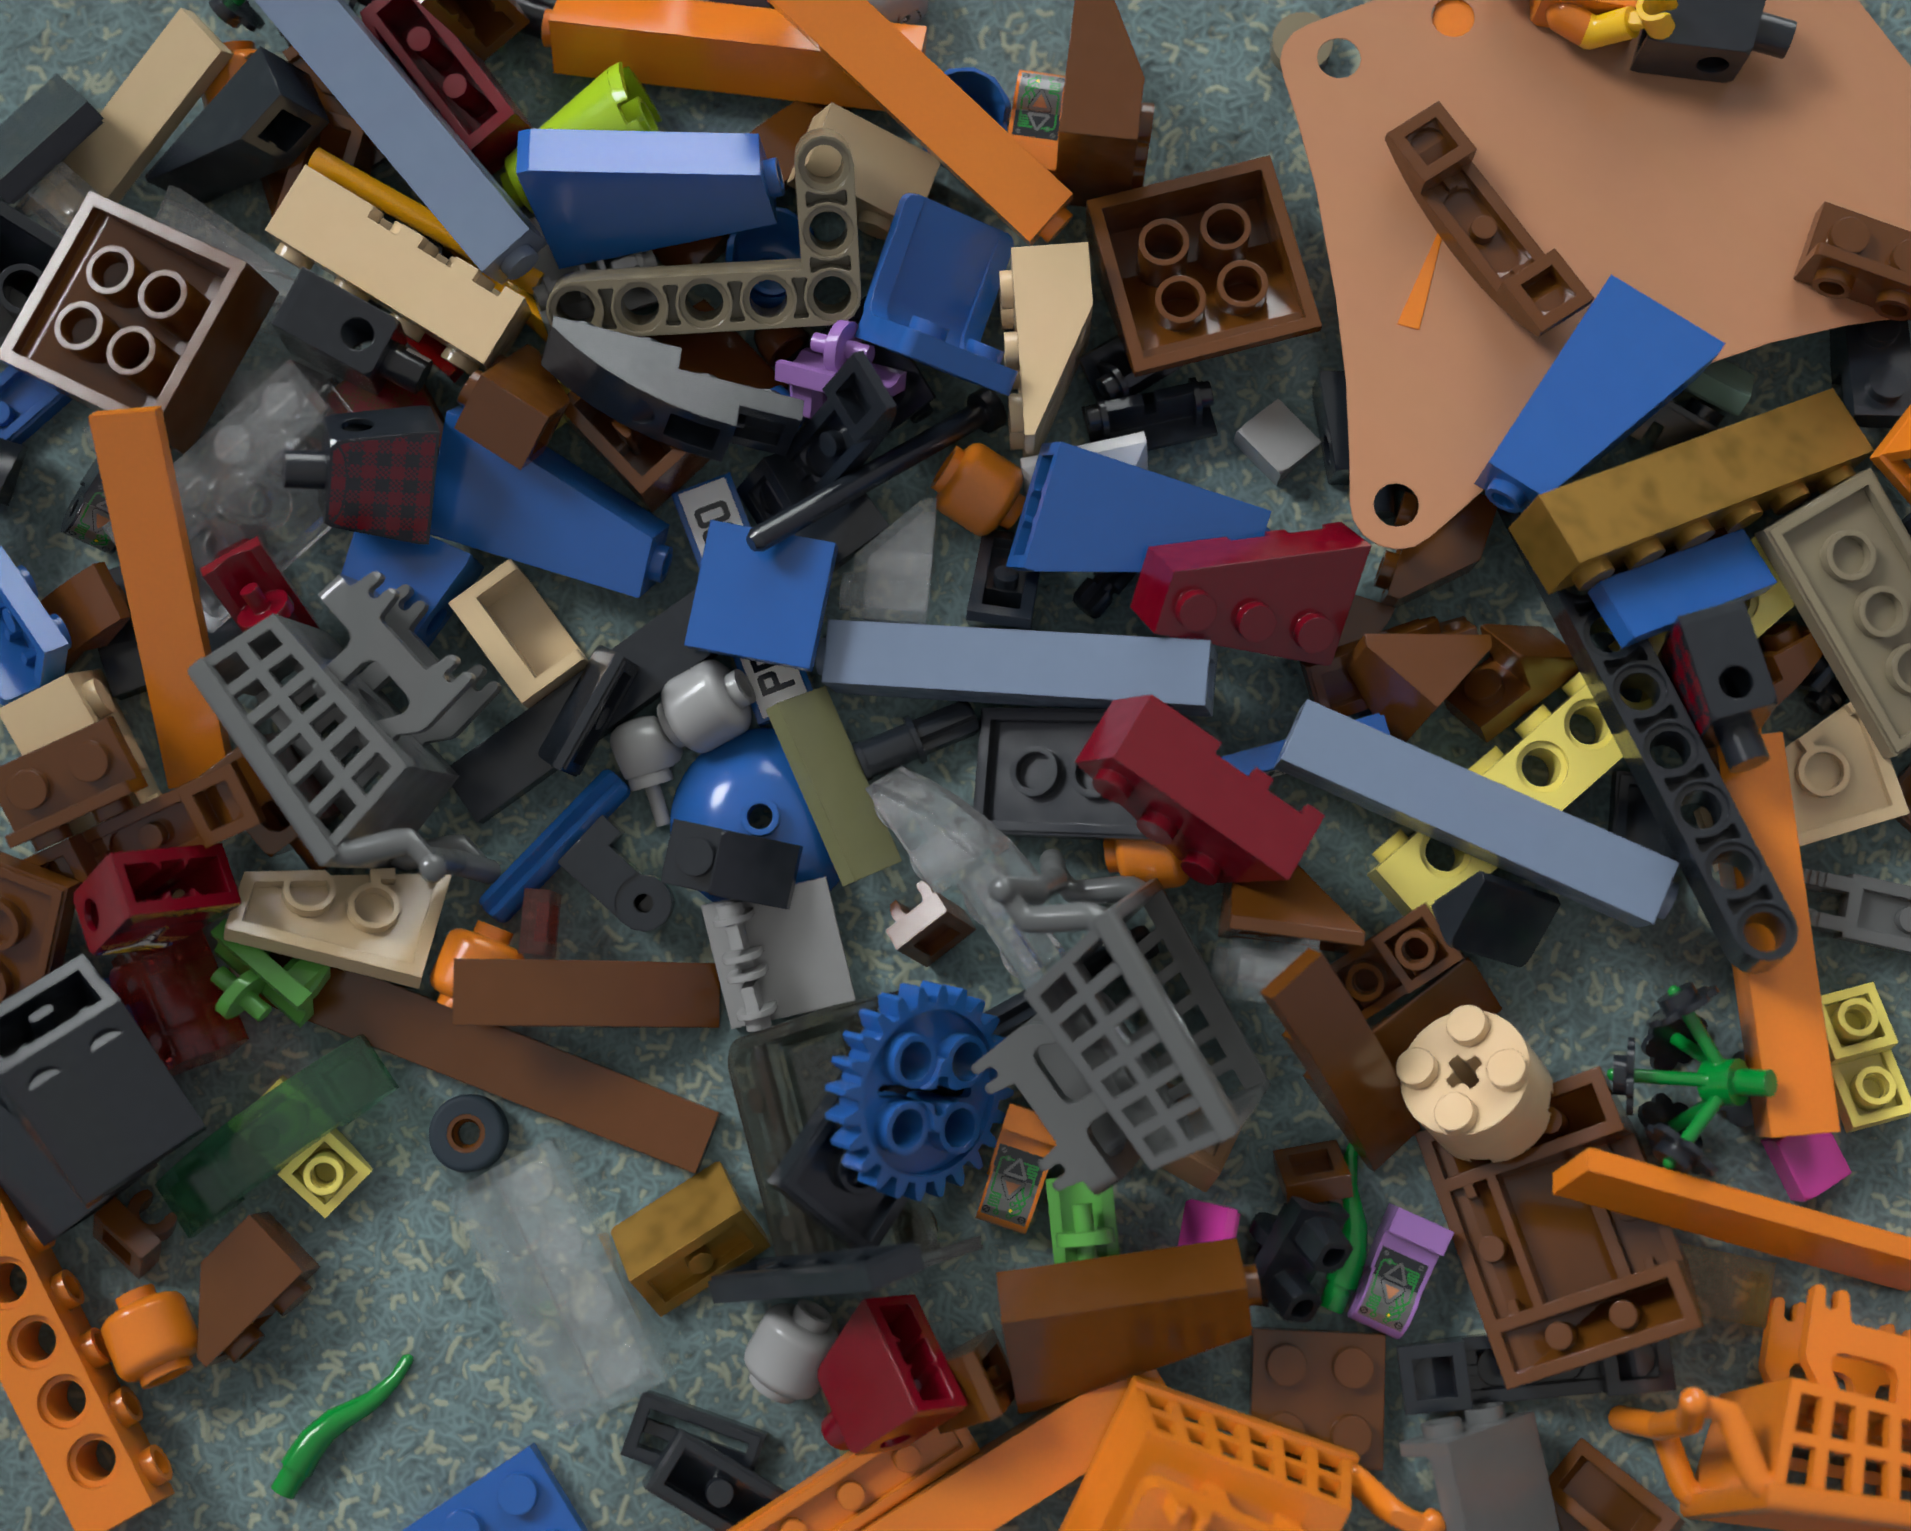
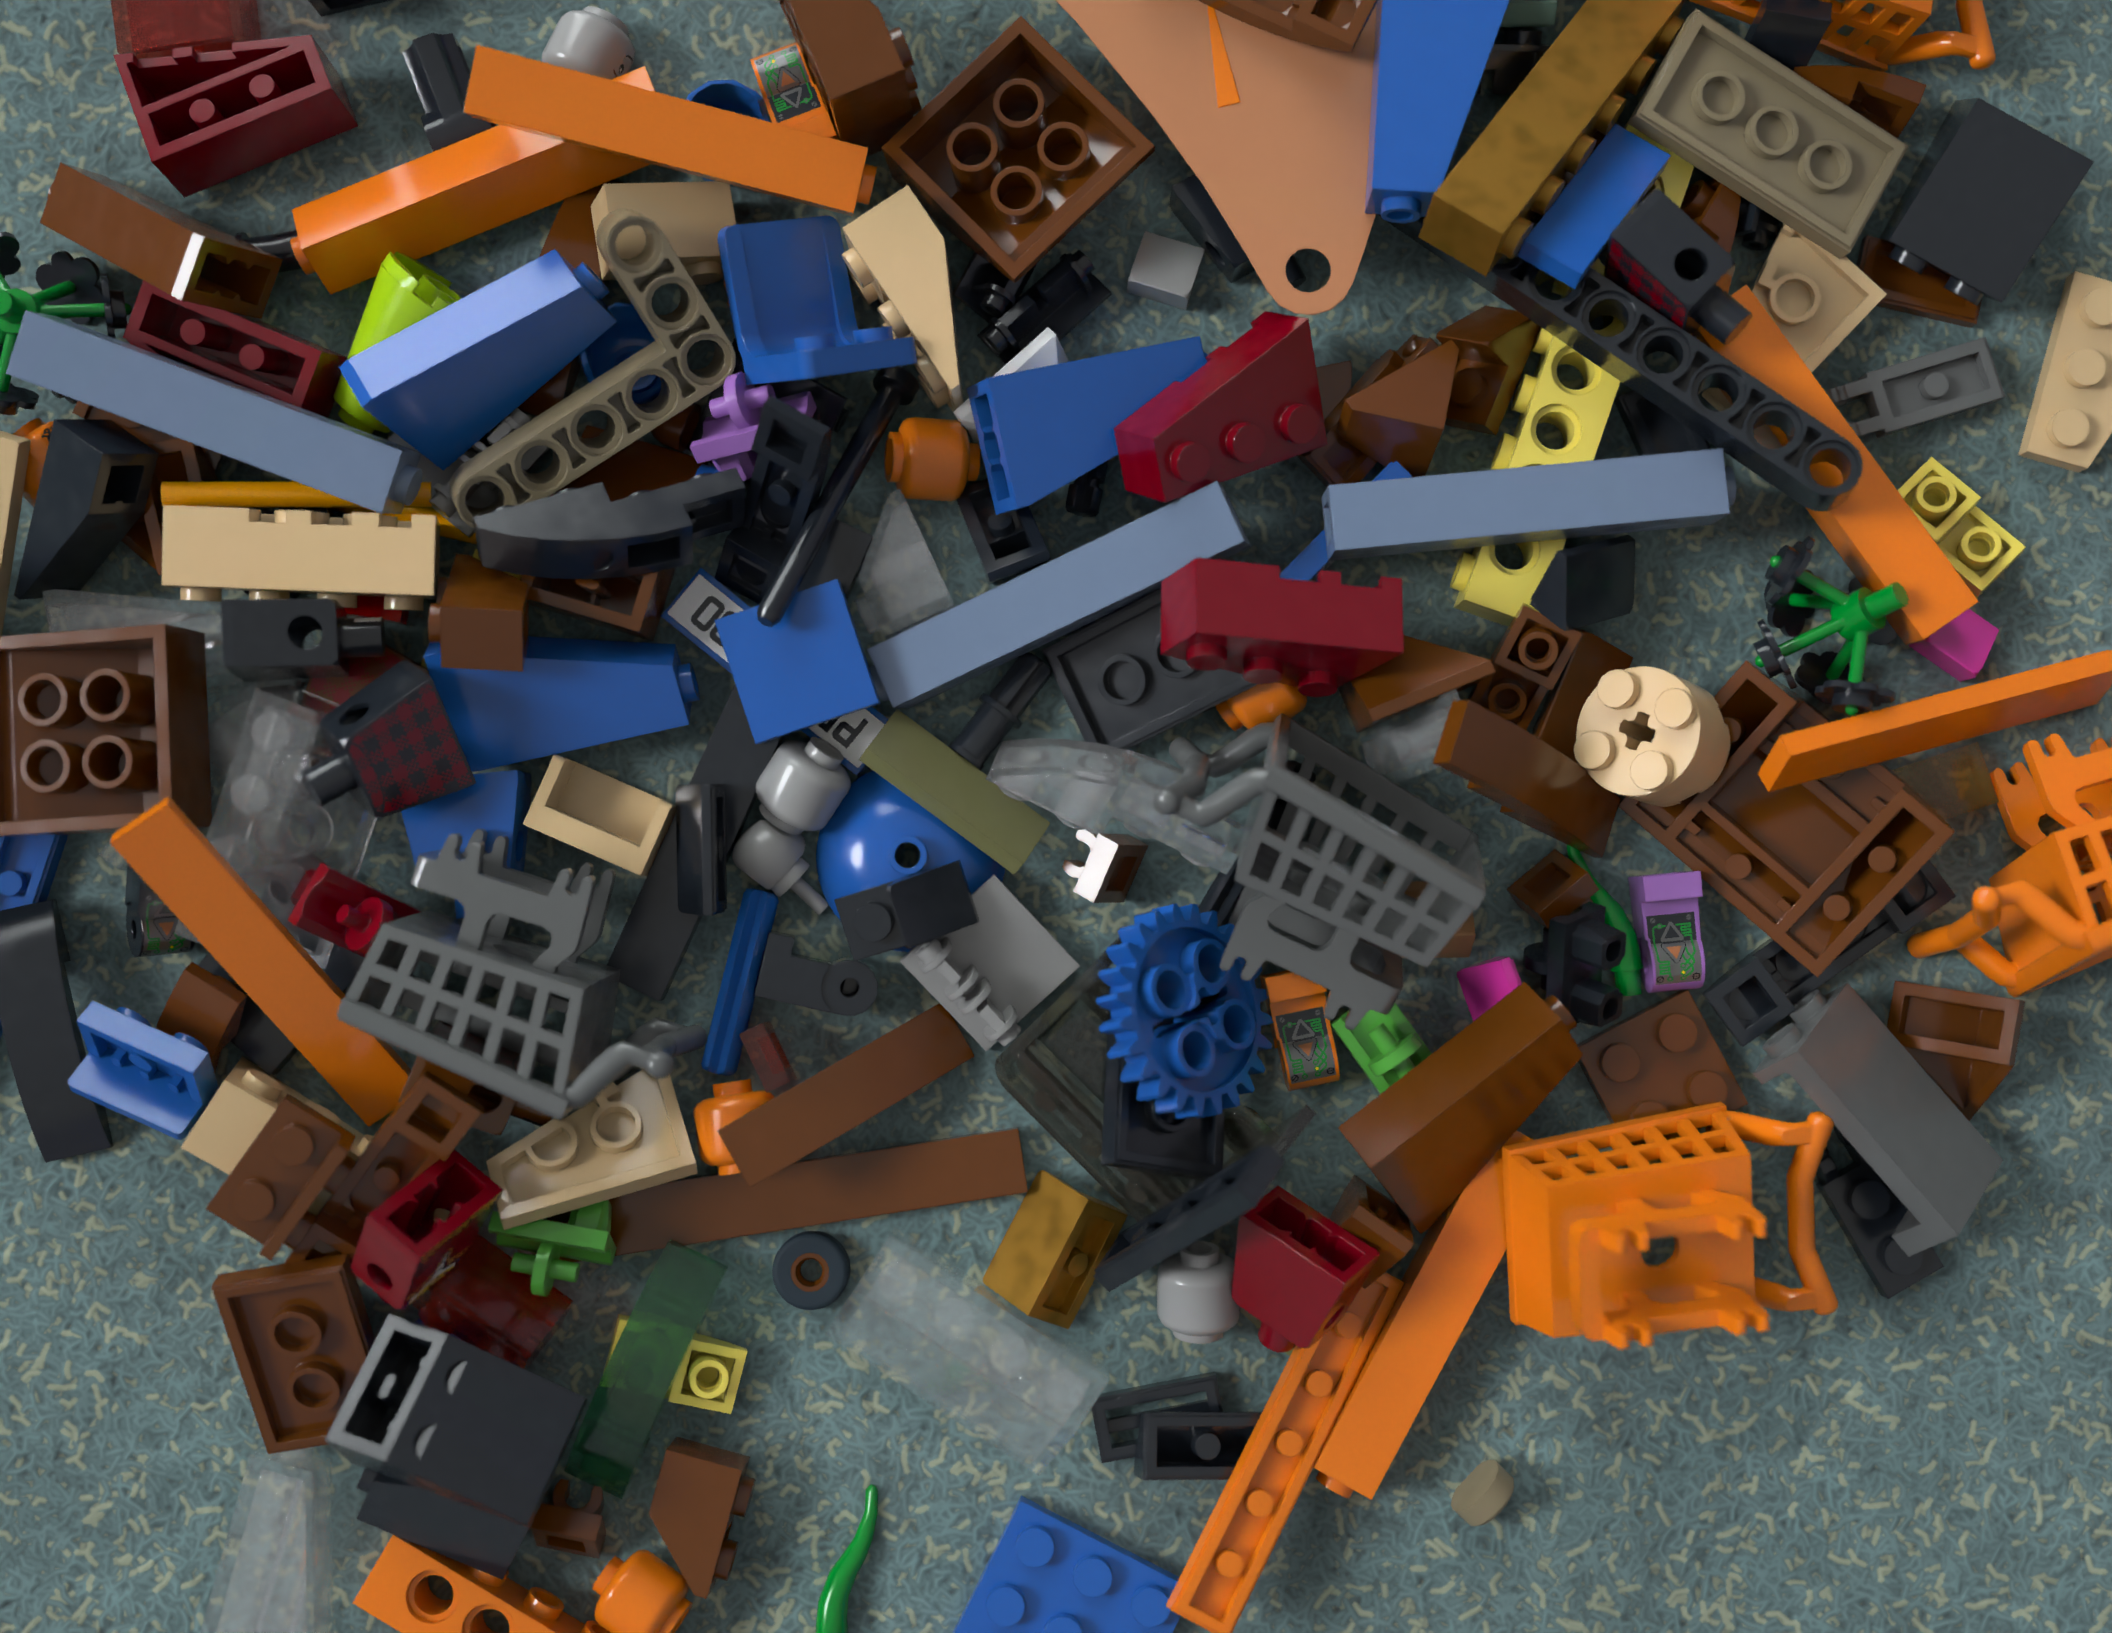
camera: 35 degrees left, 5 degrees up
(1438, 559) = (1373, 288): reddish brown slope -> none

